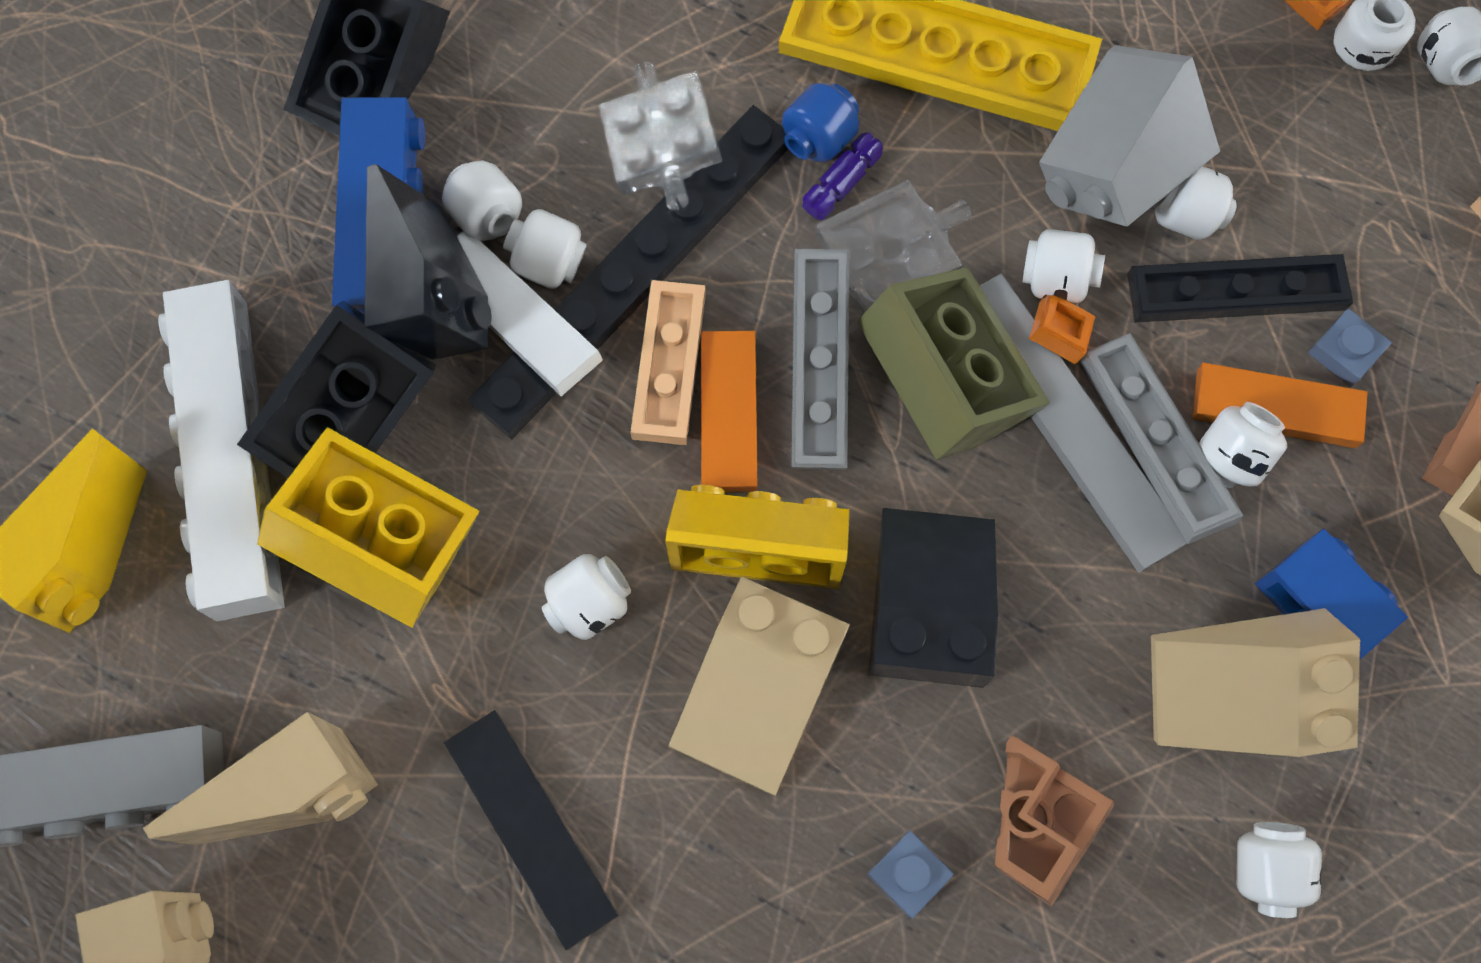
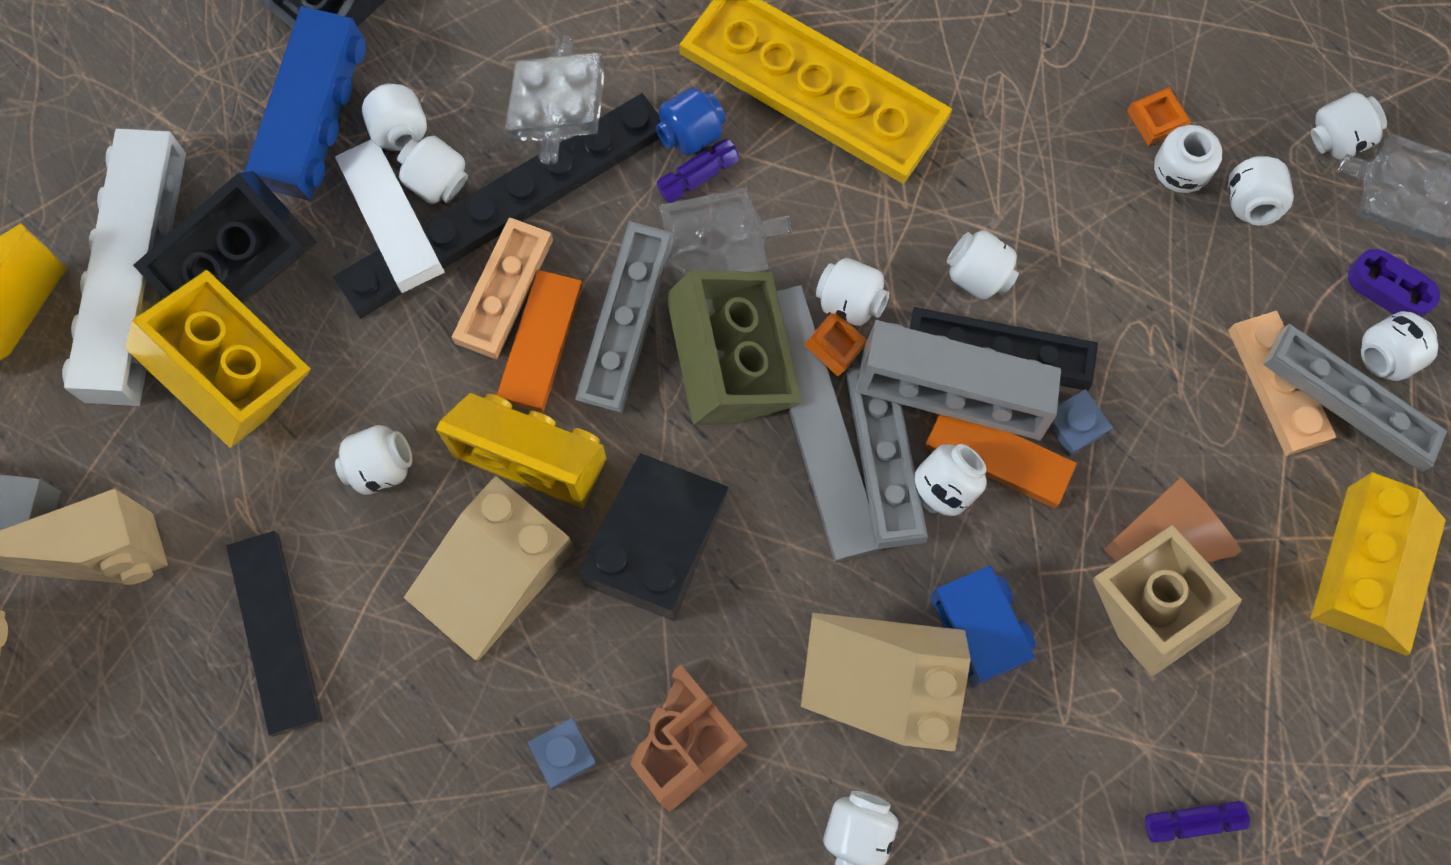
camera: 15 degrees right, 0 degrees up
(418, 274) = (317, 162): black slope -> none
(1130, 136) = (936, 198): light grey slope -> none
(1216, 333) = (959, 380): none -> light grey brick

